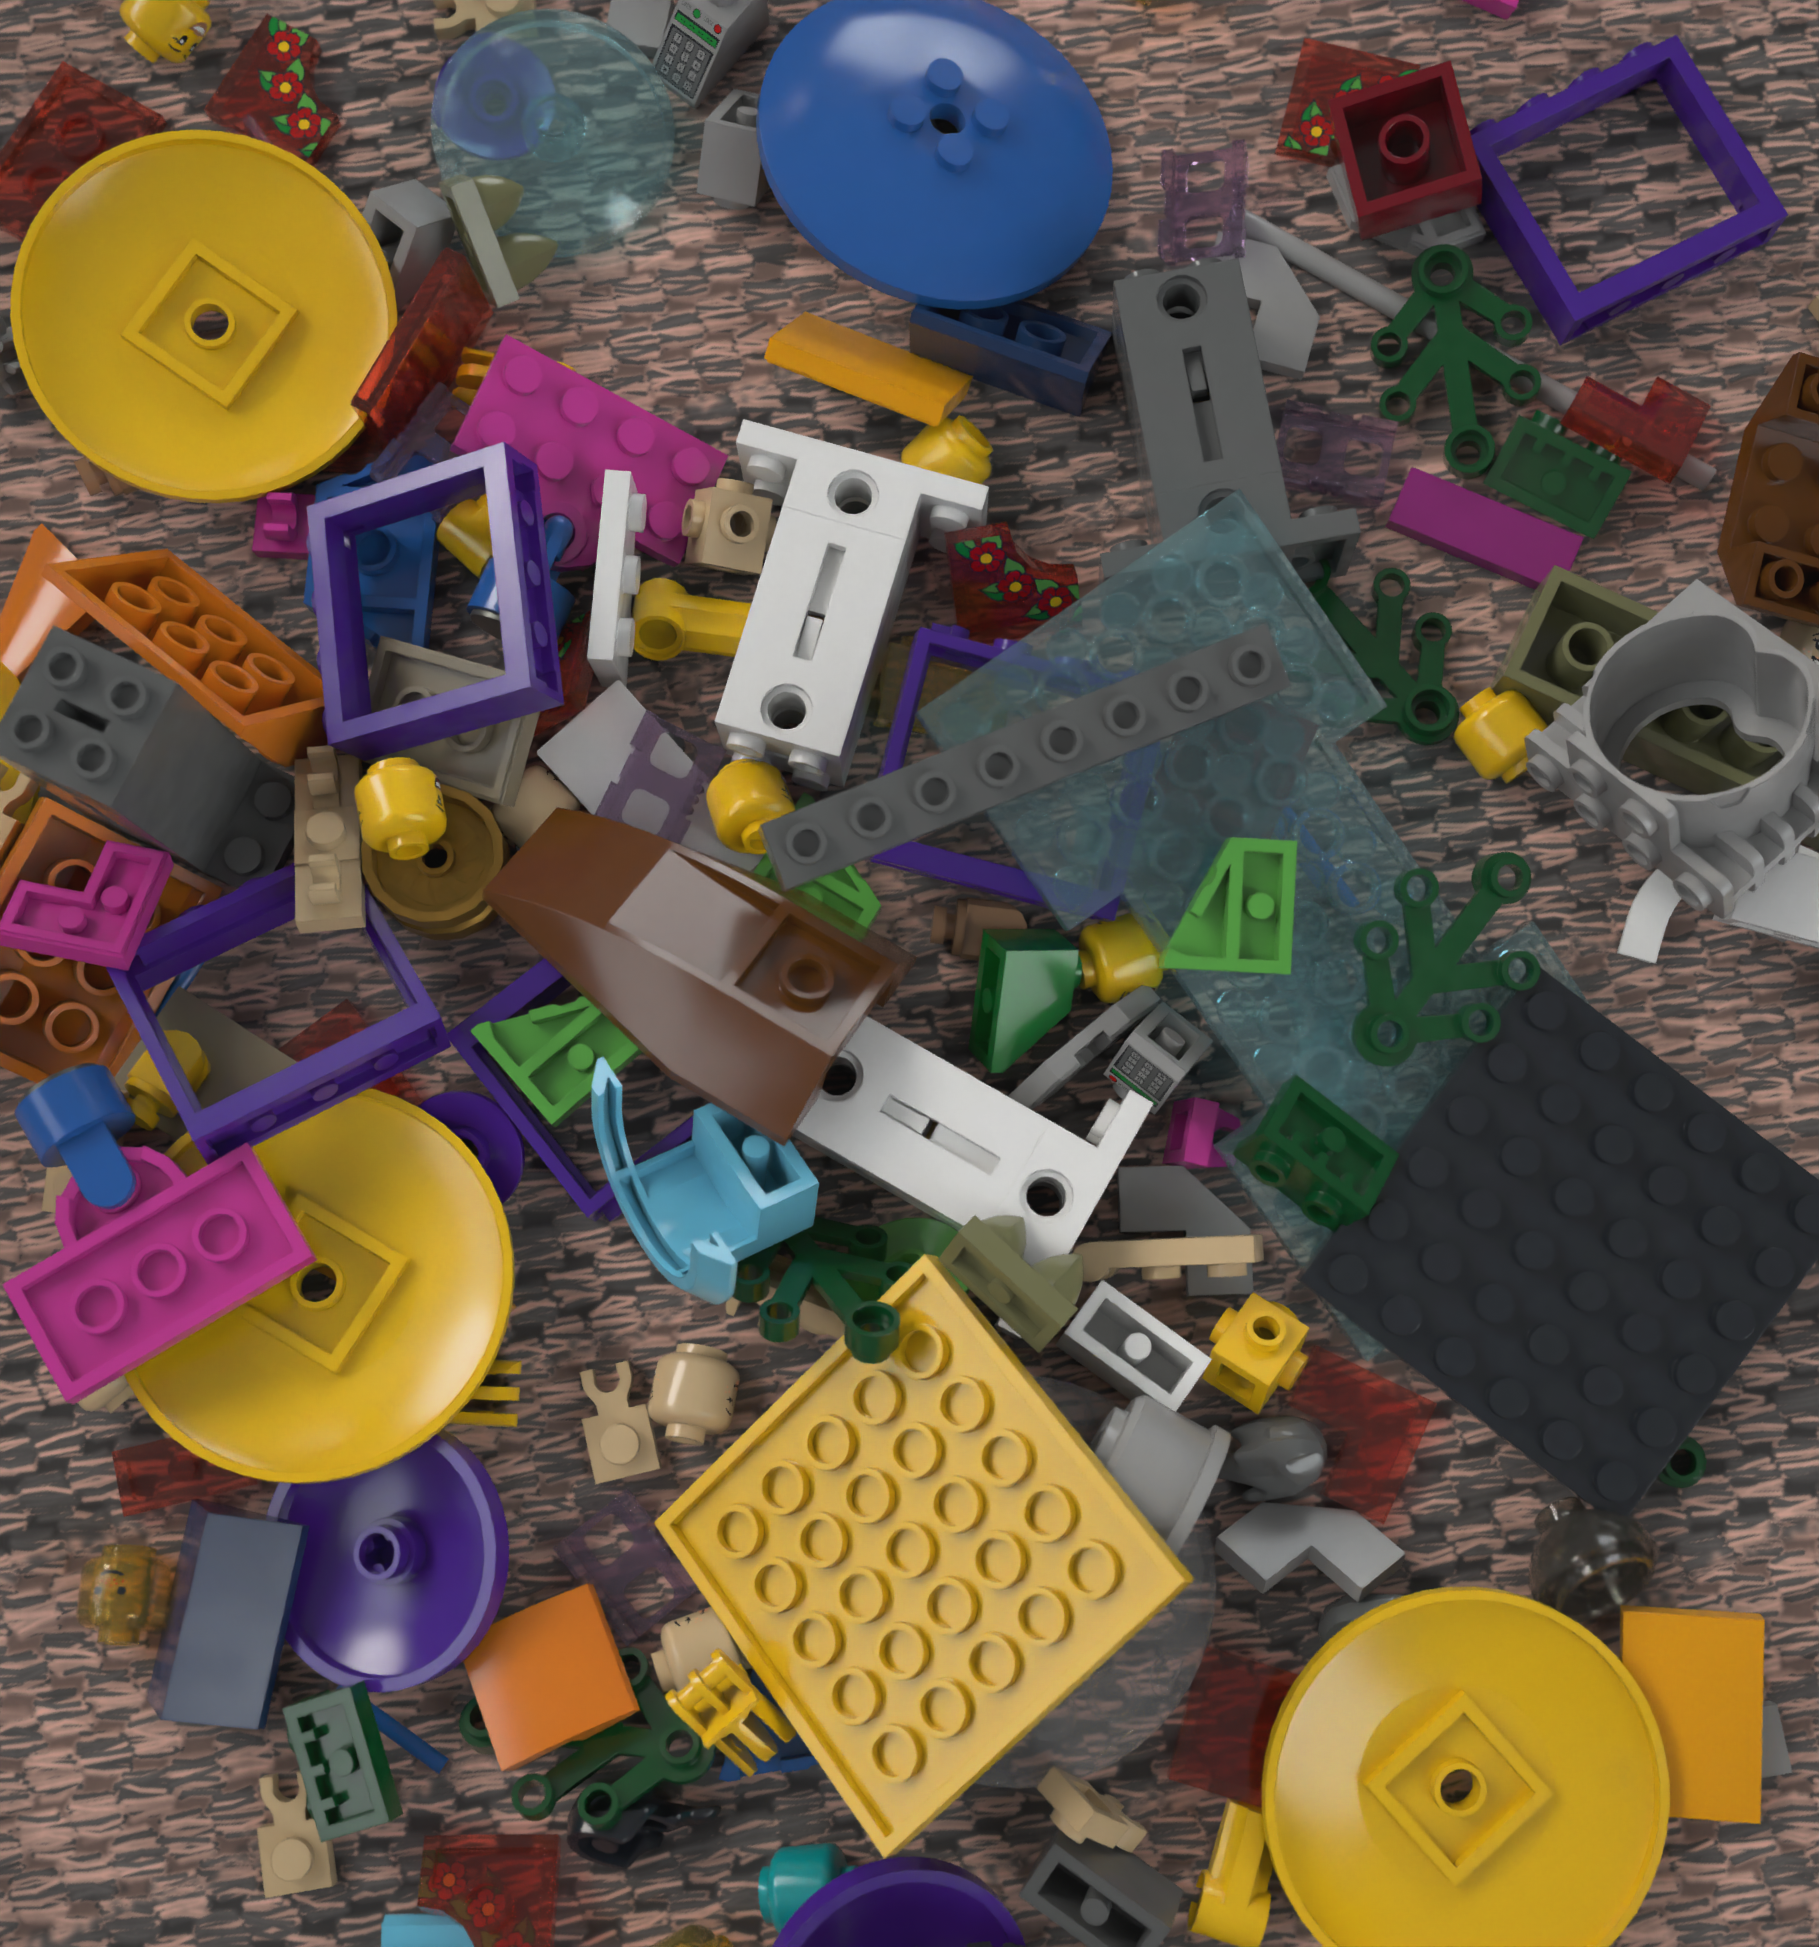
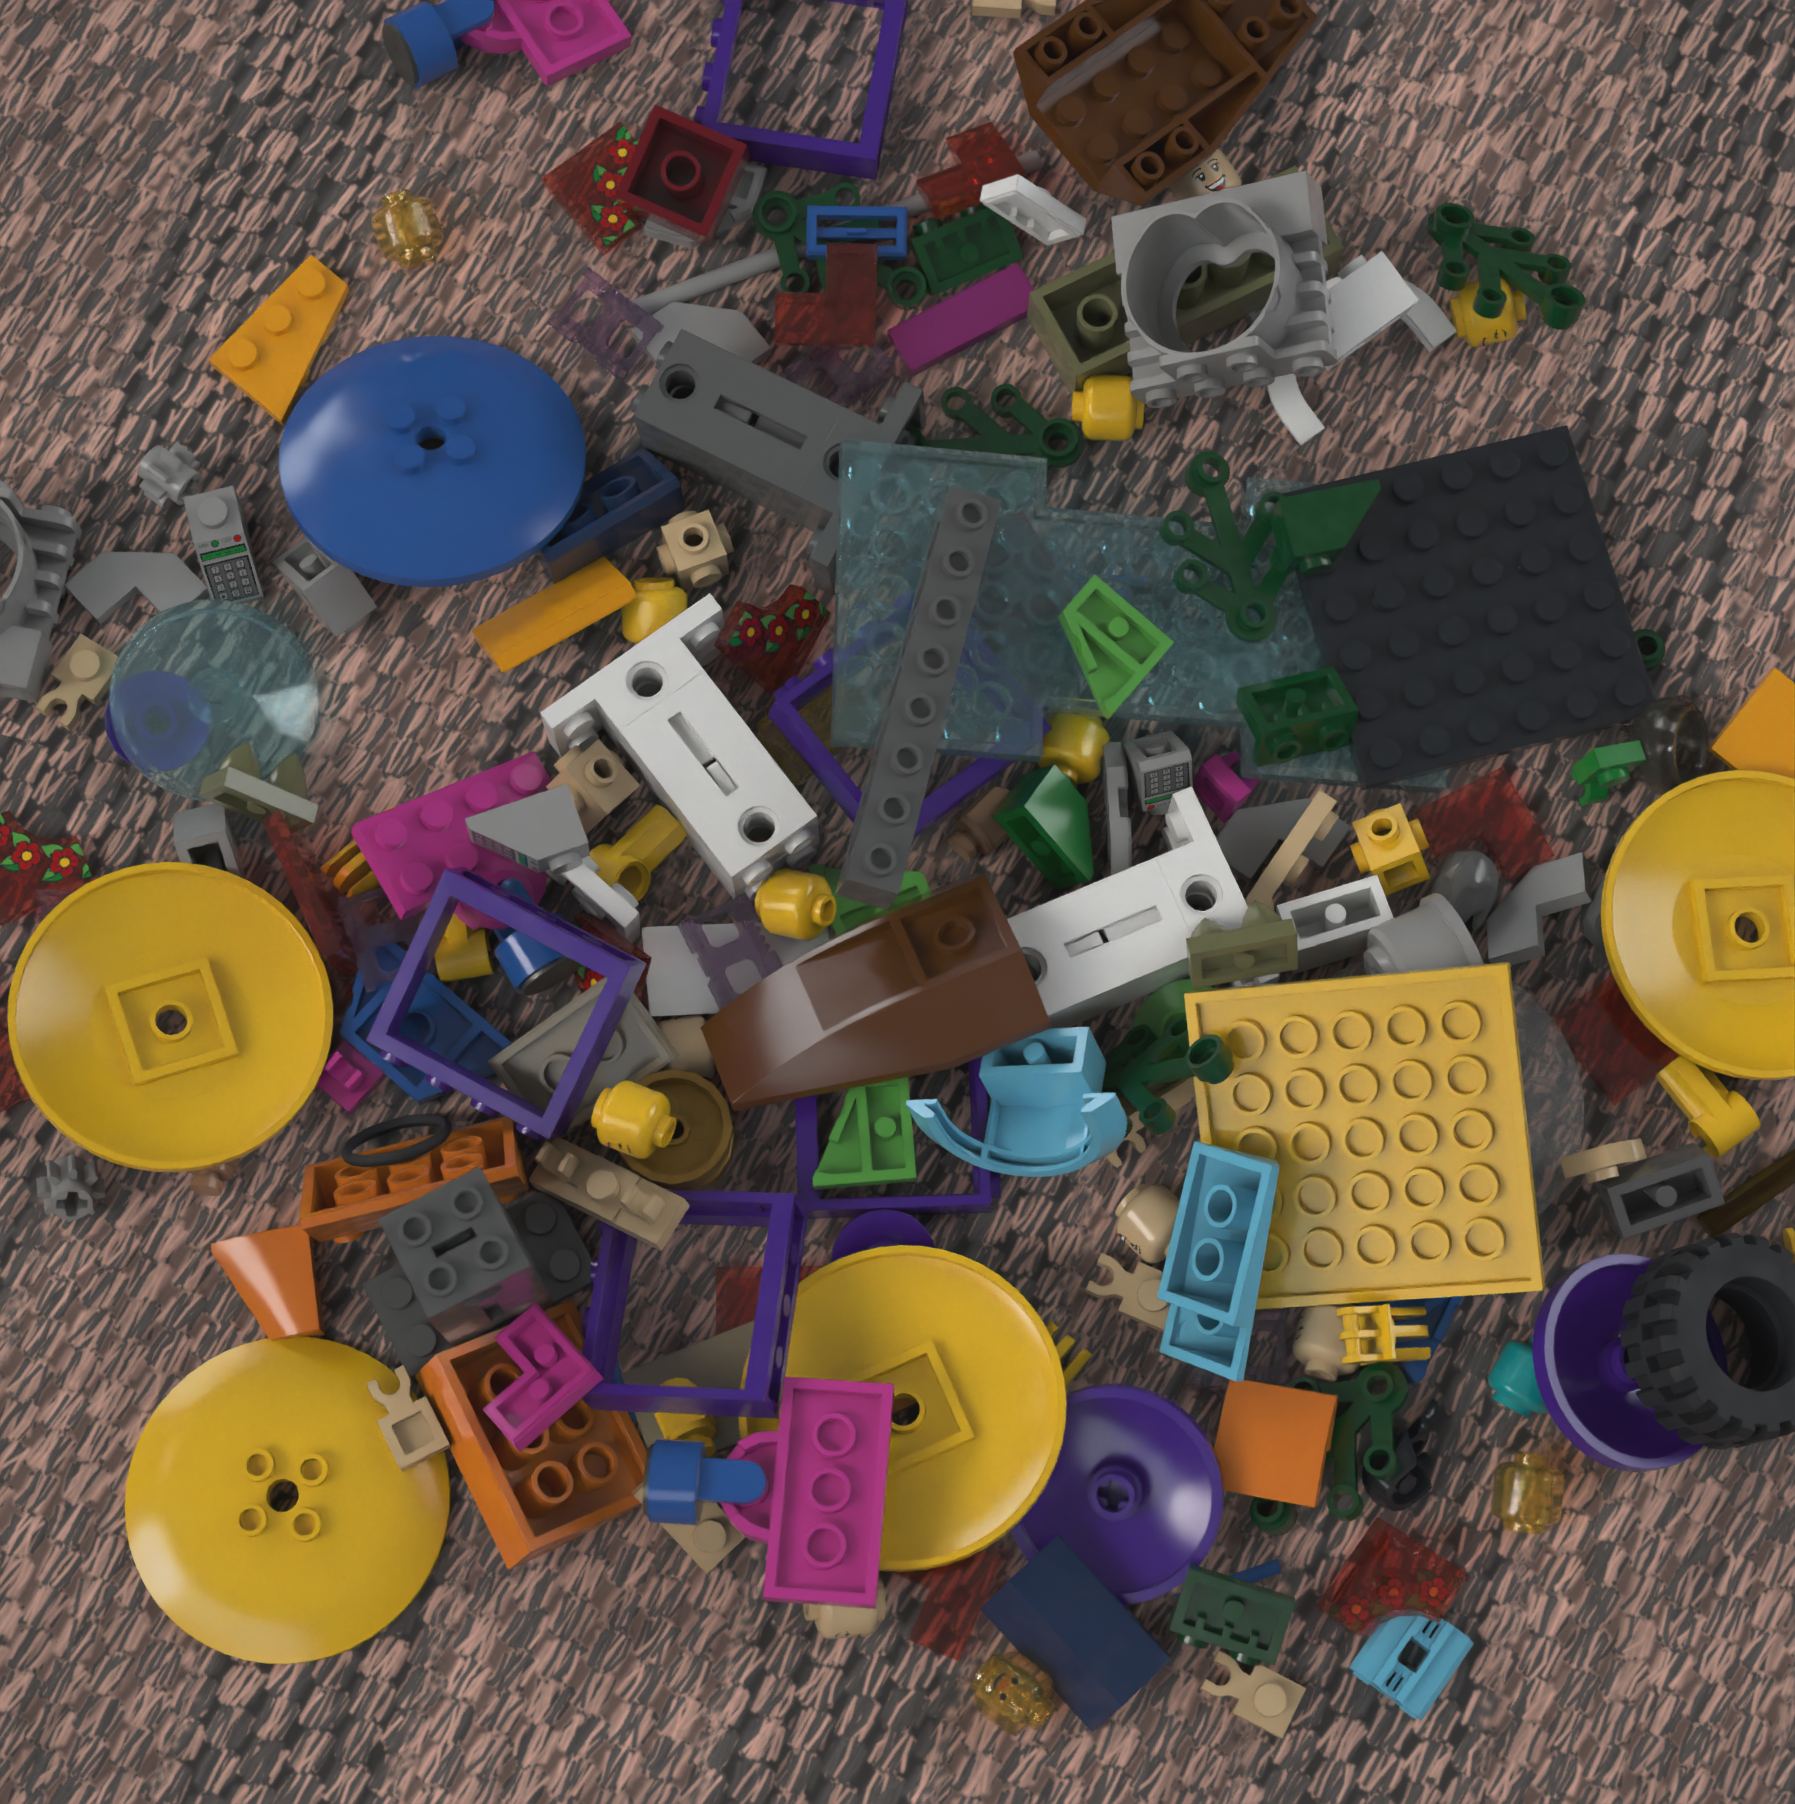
camera: 55 degrees left, 5 degrees down
(233, 632) = (399, 1155): none -> black tyre
(610, 499) = (534, 831): none -> light grey slope
(687, 1485) = (1217, 1258): none -> medium azure slope
(1042, 467) = (700, 564): none -> tan brick
(1389, 408) = (841, 315): none -> clear red tile
(1467, 378) = (871, 213): none -> blue tile
(1512, 1518) = (1606, 768): none -> green plate
(1532, 1030) = (1318, 524): none -> dark green slope
(1647, 506) = (1032, 209): none -> white plate

